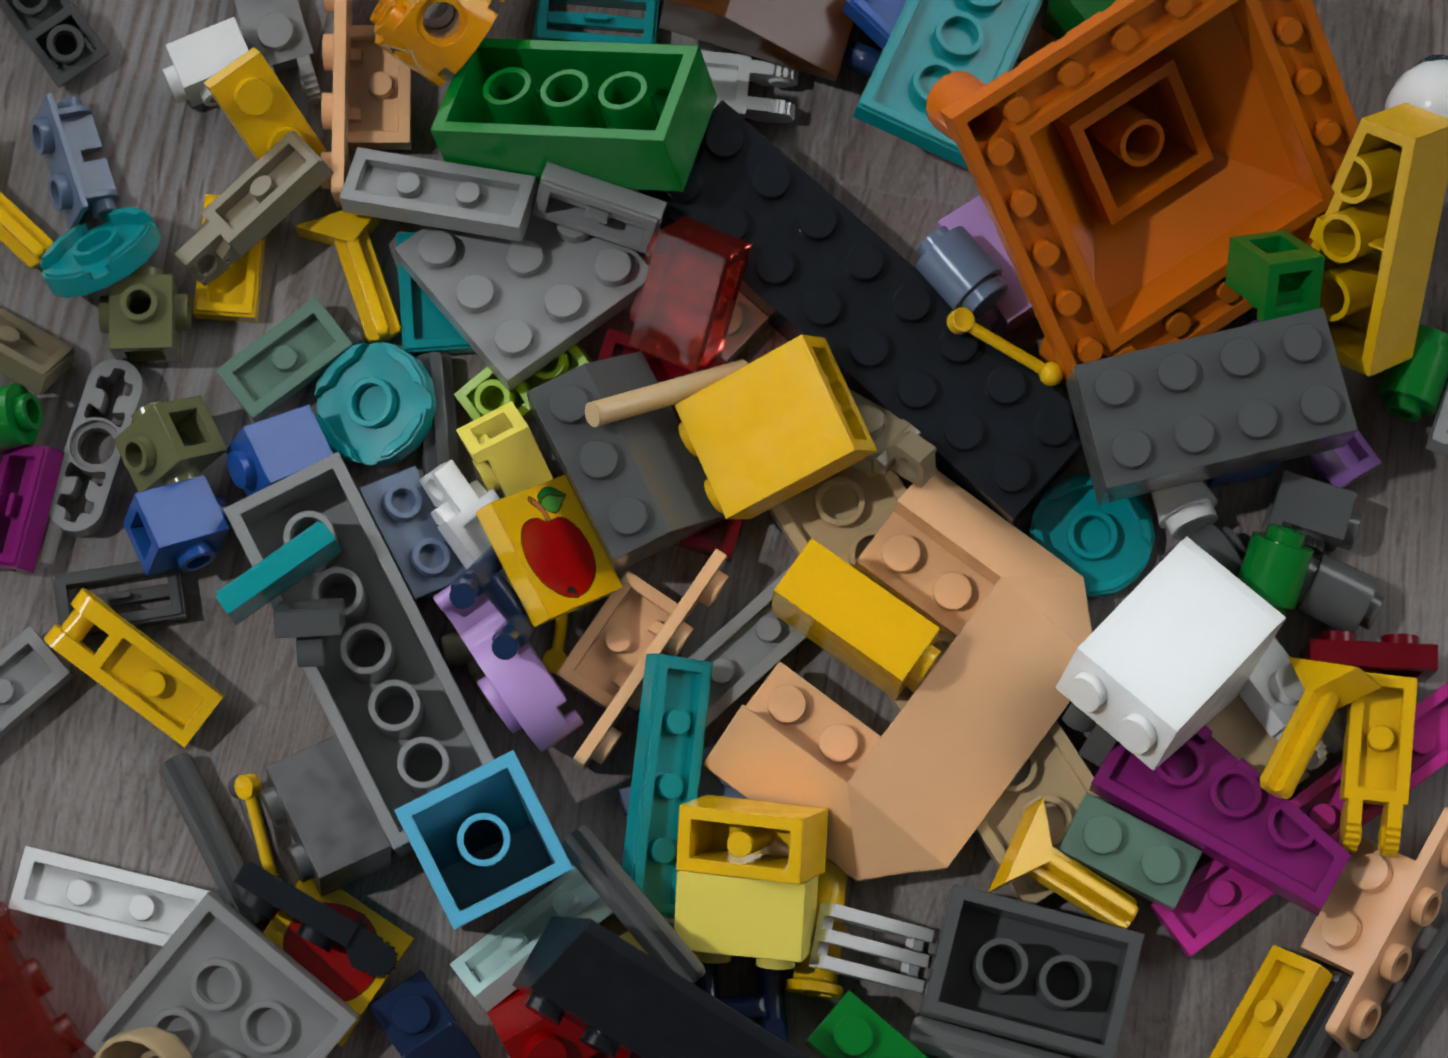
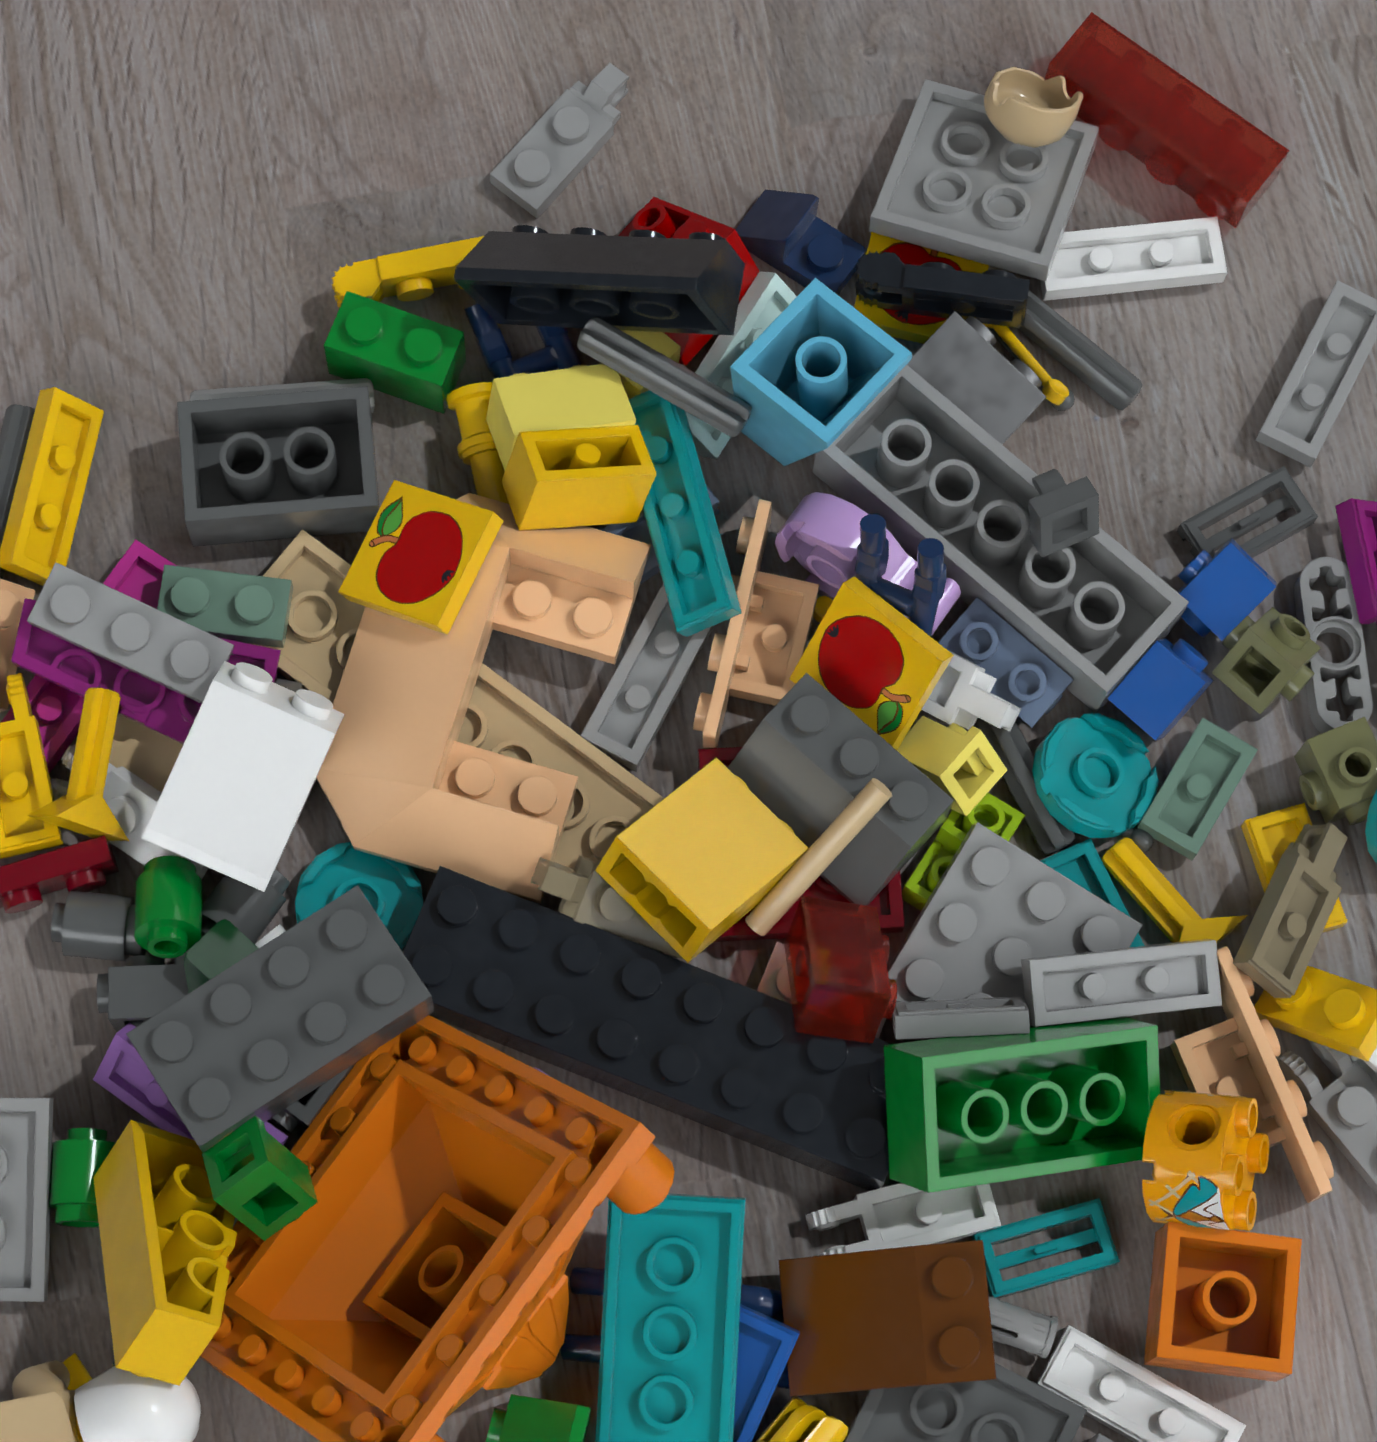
camera: 155 degrees right, 5 degrees down
(135, 669) = (1204, 455): yellow plate -> none
(278, 572) = (1111, 548): teal tile -> none
(856, 620) = (554, 701): yellow brick -> none
(910, 957) = (427, 421): white tile -> none
(931, 816) = (421, 556): none -> tile
(960, 270) = (584, 1073): sand blue brick -> none
(963, 321) = (557, 1026): yellow hinge -> none
(1034, 856) = (310, 563): yellow piece -> none
(1231, 837) = (129, 633): none -> light grey plate
(1243, 502) = (215, 953): none -> dark green slope

